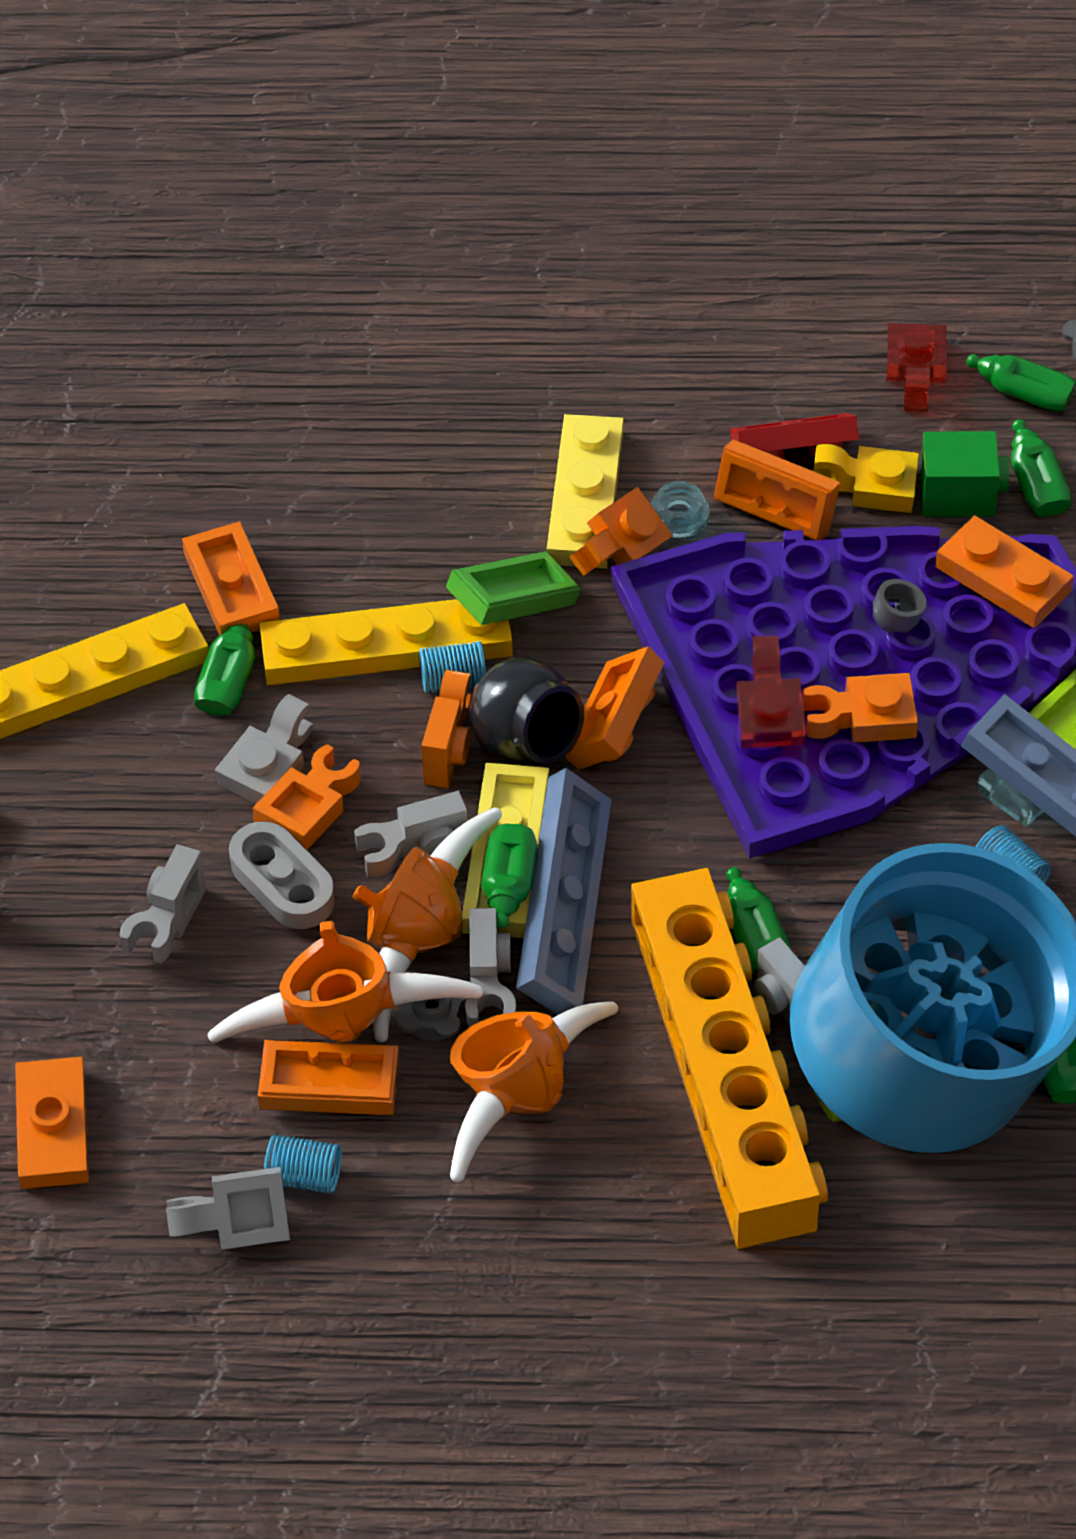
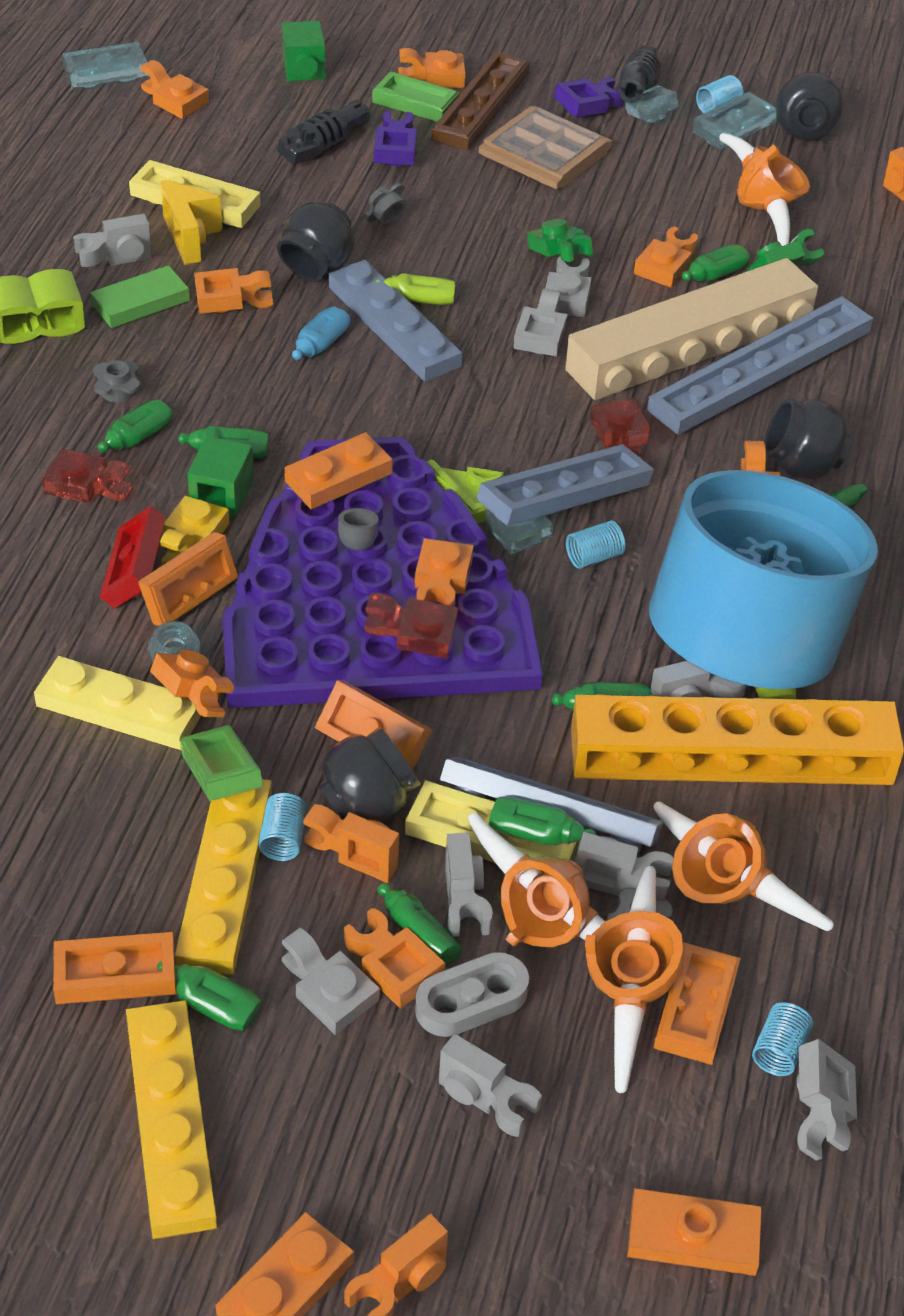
camera: 80 degrees left, 5 degrees down
(366, 803) = (410, 912): none -> green piece

